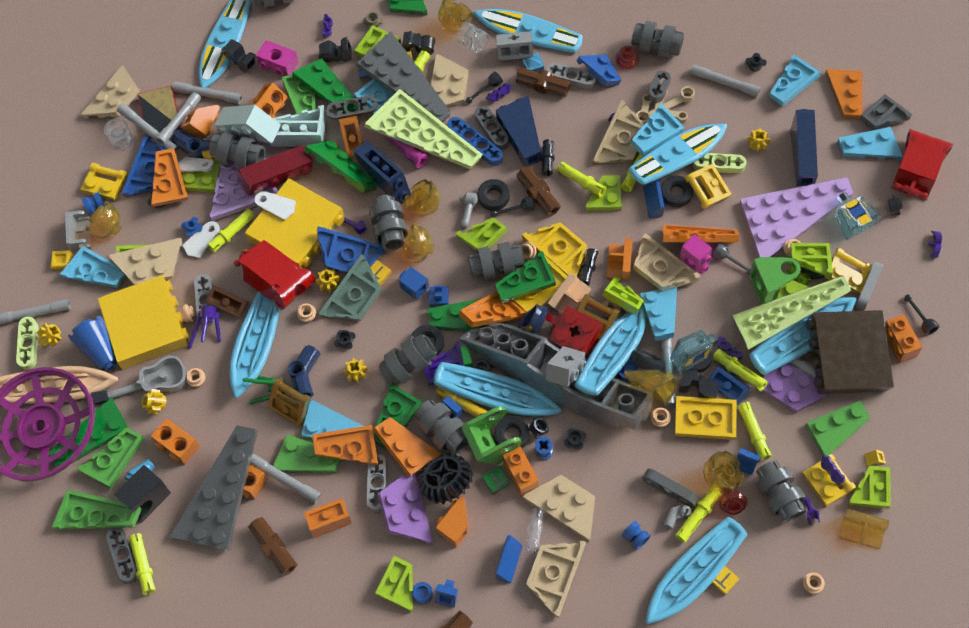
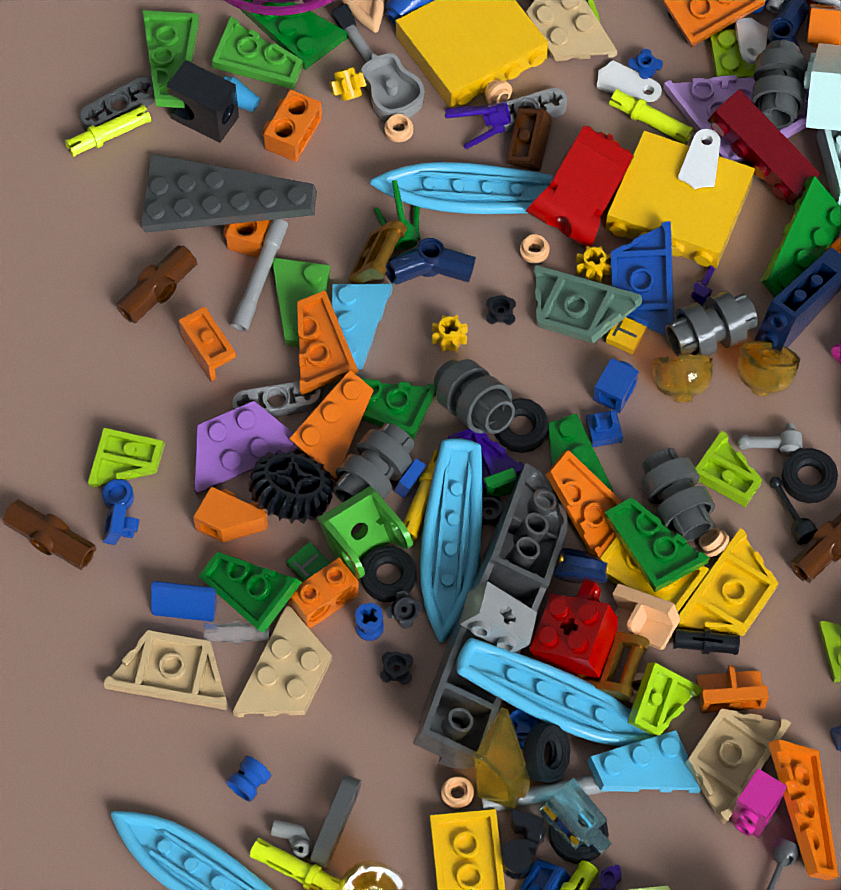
camera: 75 degrees right, 0 degrees up
(511, 514) = (249, 589): none -> green wing

